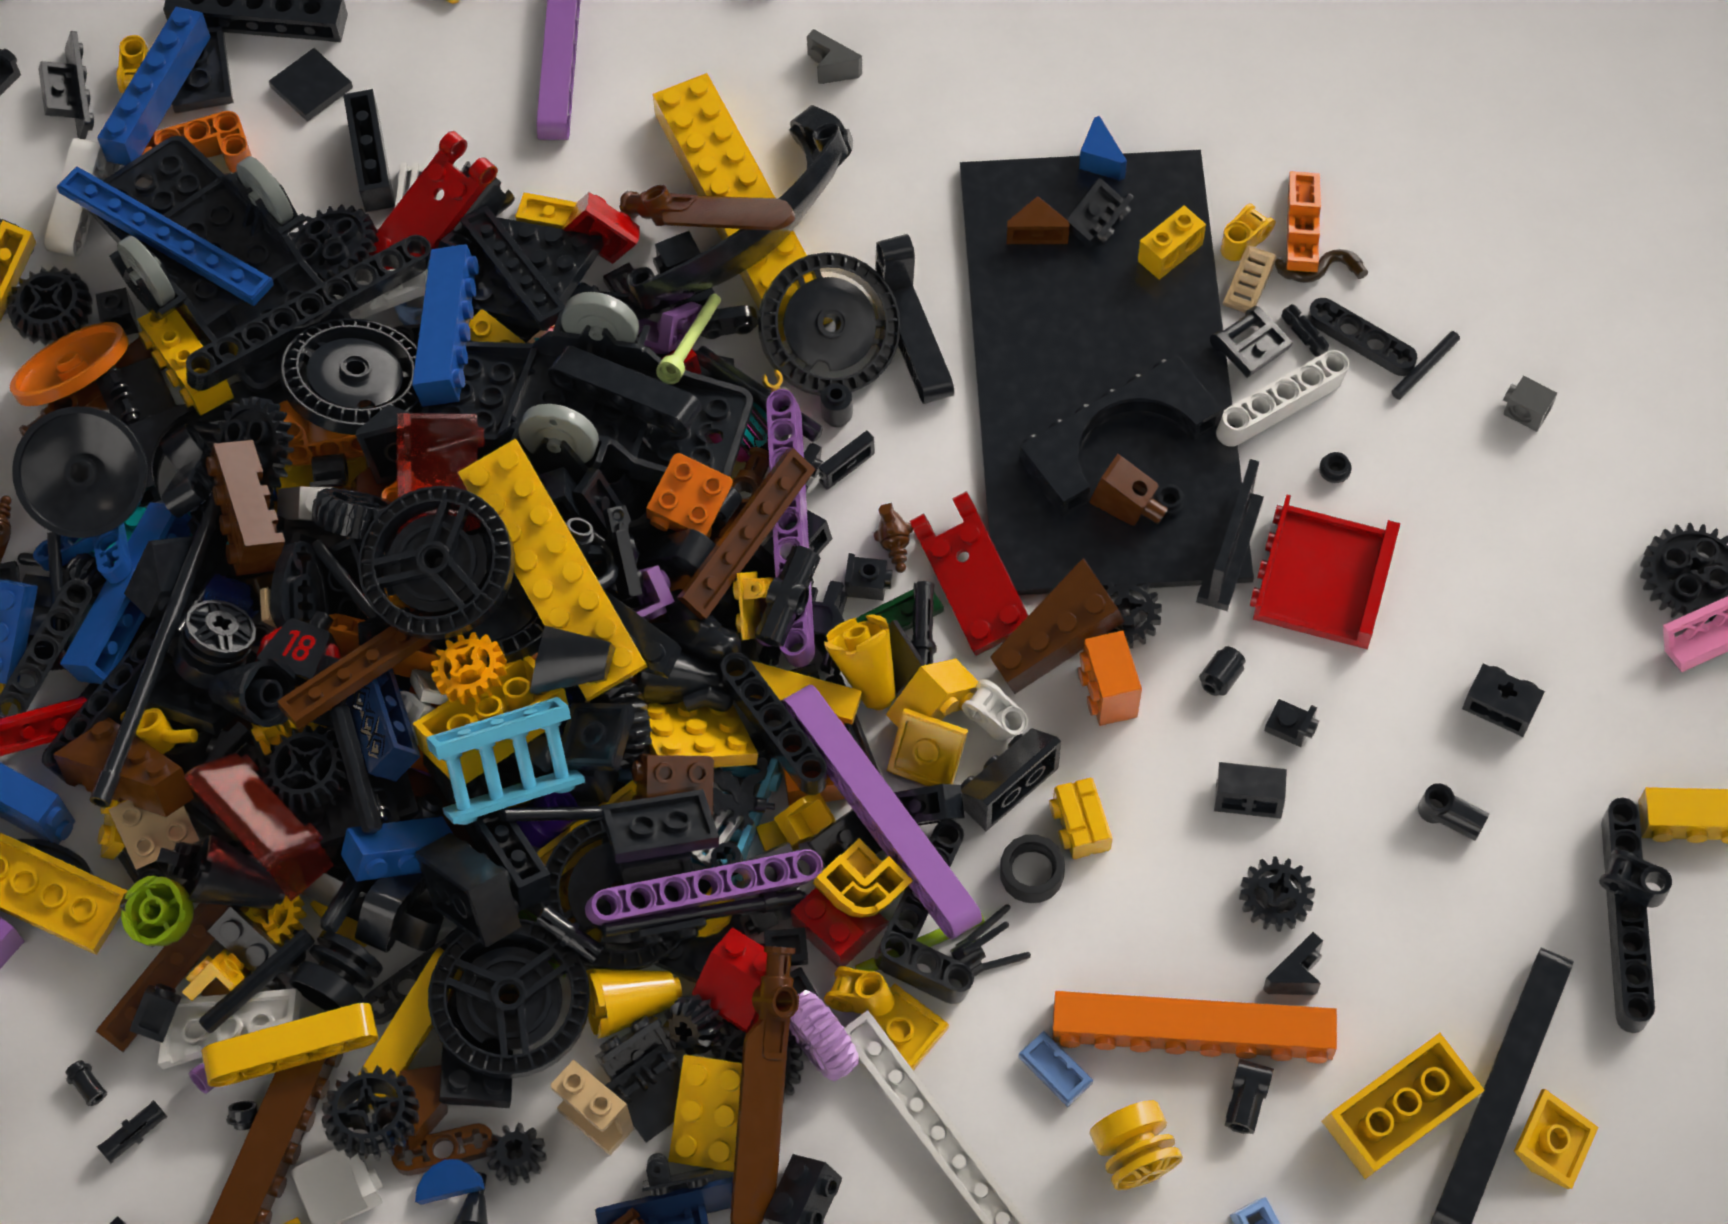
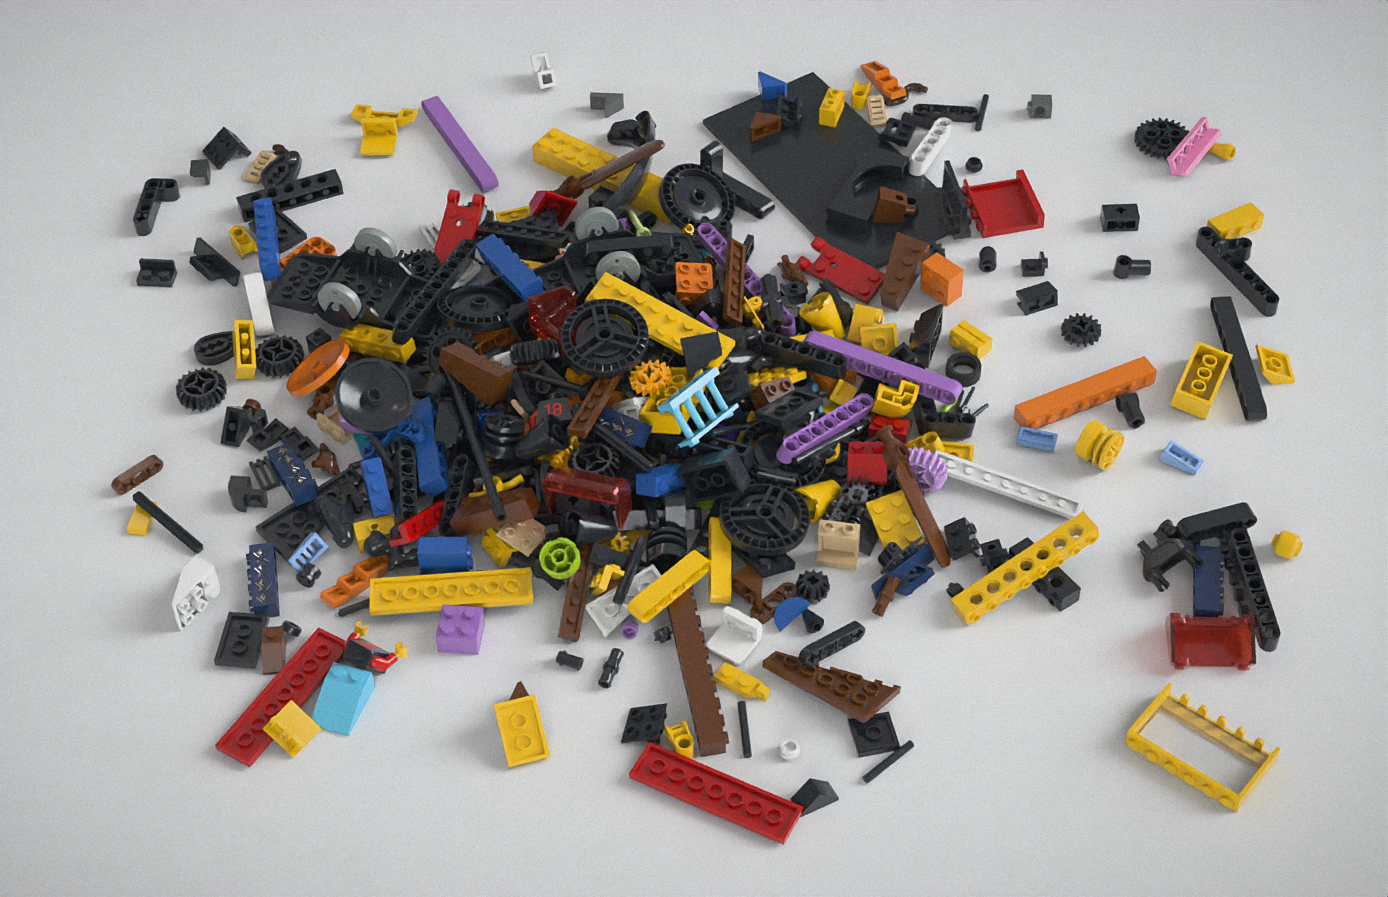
camera: 30 degrees left, 15 degrees down
(156, 1012) = (587, 608): black bracket -> none
(165, 235) = (310, 289): blue tile -> none
(310, 84) = (343, 215): black tile -> none
(342, 1113) = (735, 590): black gear -> none
(369, 150) = (401, 225): black brick -> none
(991, 707) = (901, 314): white piece -> none
(1291, 976) = (1114, 355): black slope -> none

